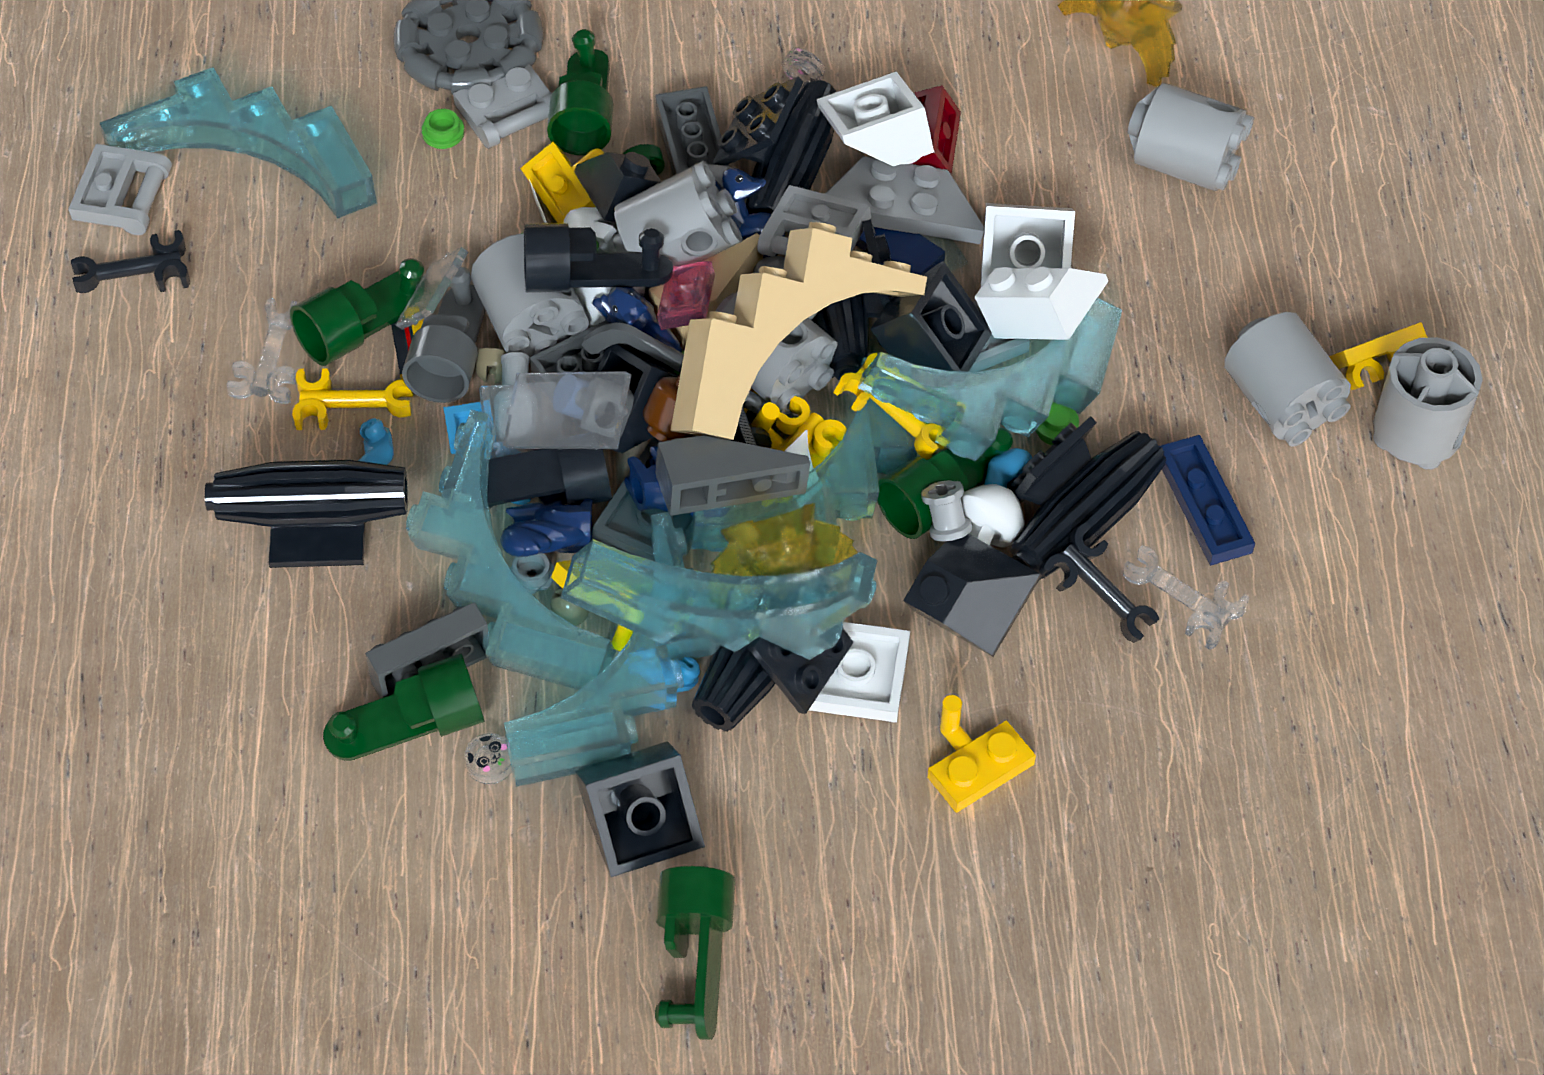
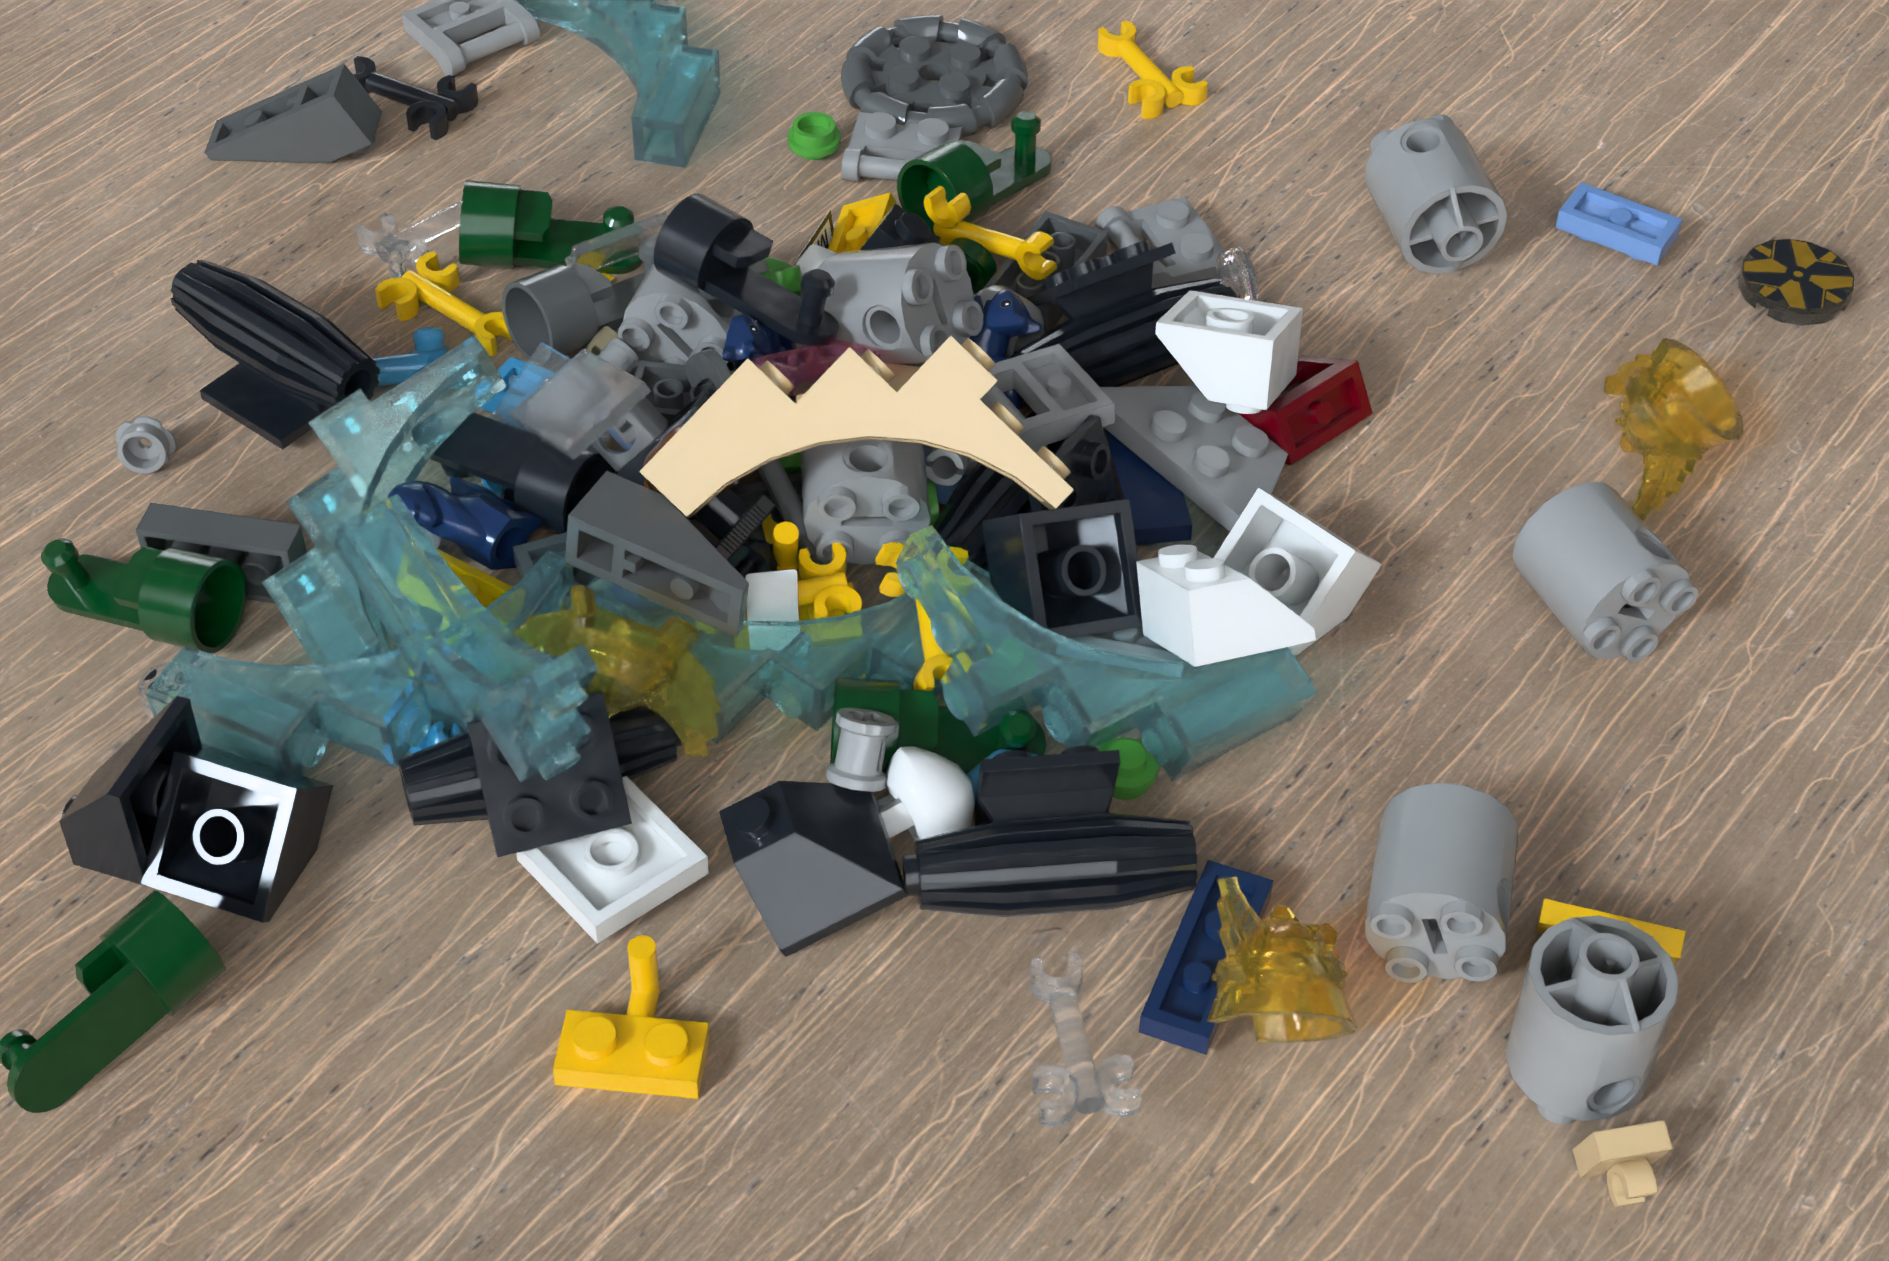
camera: 40 degrees right, 10 degrees down
(99, 337) = (301, 124): none -> dark grey slope
(279, 622) = (138, 456): none -> light grey plate
(570, 833) = (118, 808): none -> black slope
(614, 140) = (950, 225): none -> yellow bar
(733, 62) = (1162, 224): none -> light grey plate
(1076, 562) = (959, 901): black bar -> none
(1273, 483) = (1279, 973): none -> clear yellow helmet
(1492, 464) = (1625, 1158): none -> tan tile

